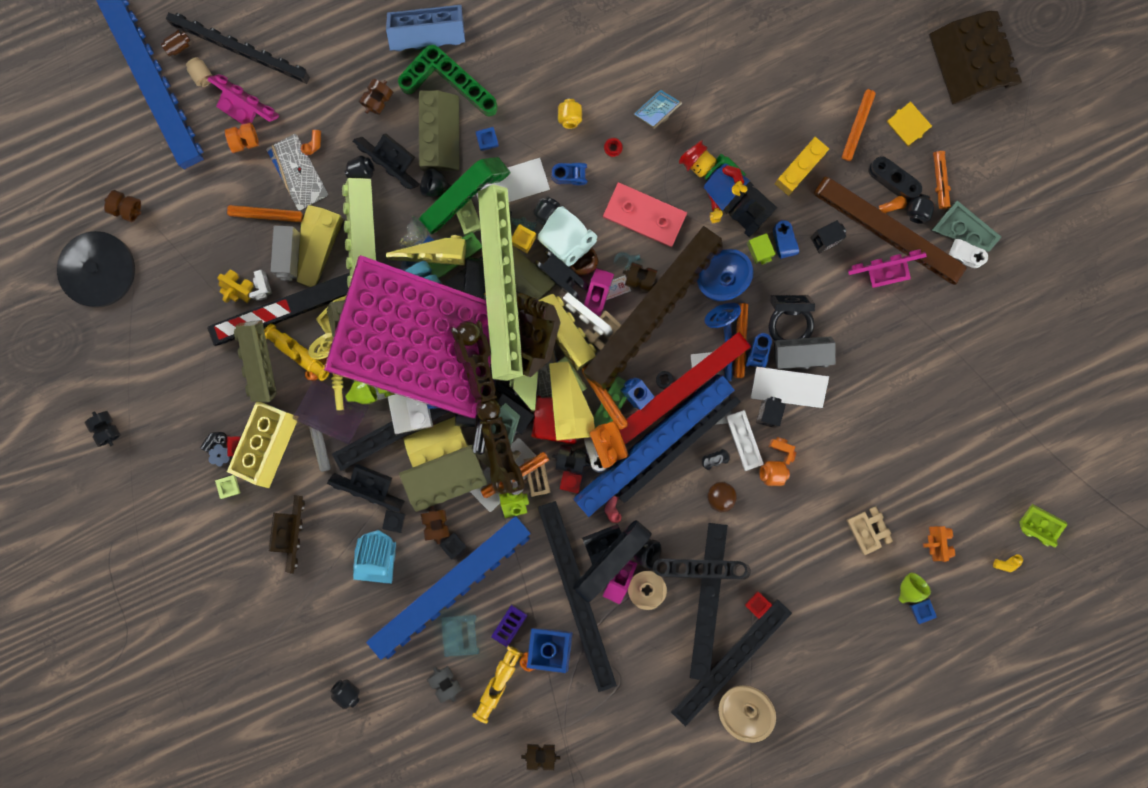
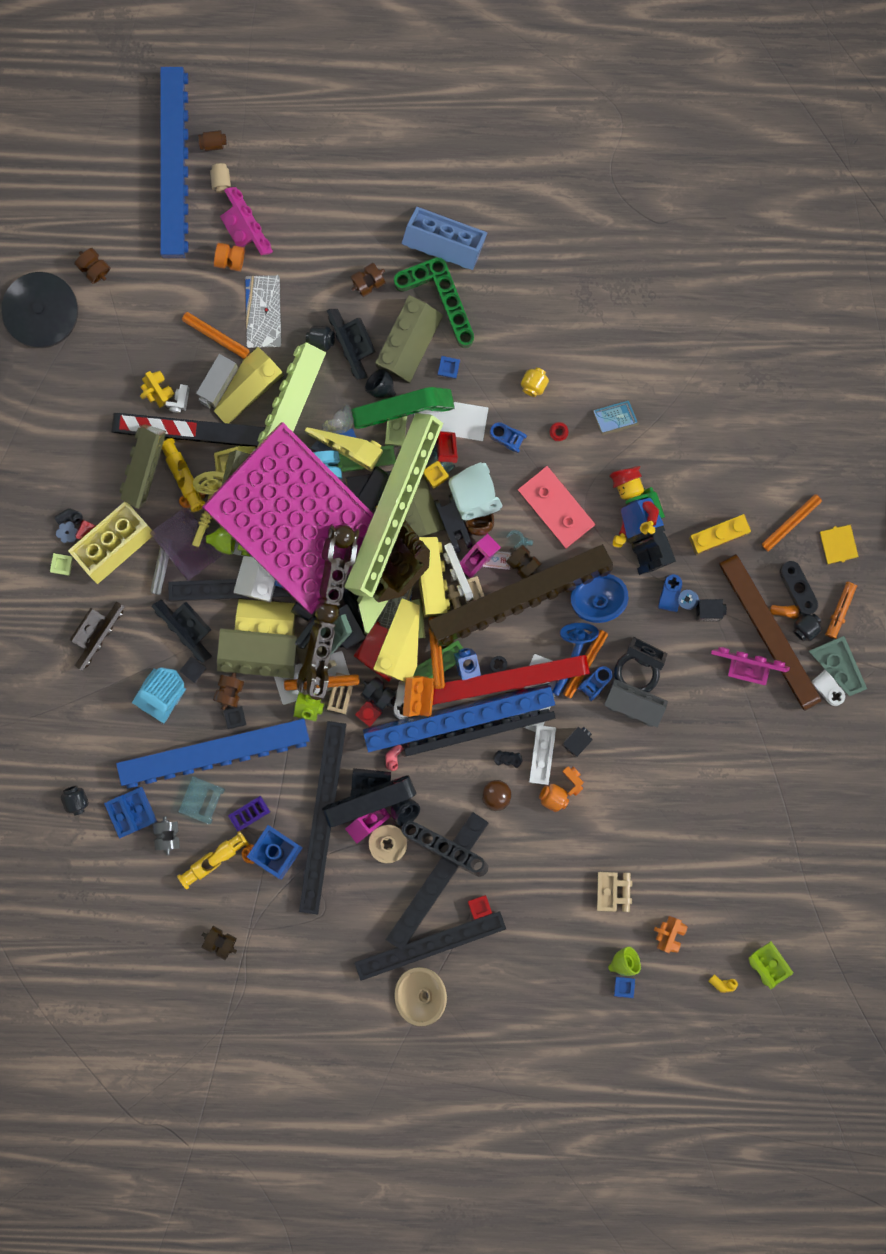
camera: 25 degrees right, 0 degrees up
(232, 44) = (262, 167): black plate -> none
(313, 145) = (289, 295): orange arm -> none
(401, 678) = (130, 812): none -> blue slope
(521, 209) = (447, 447): none -> red tile
(545, 209) = (469, 457): black head -> none
(761, 249) = (645, 591): lime brick -> none
(790, 387) = (607, 727): white sticker -> none
(804, 236) = (688, 599): none -> medium blue tile

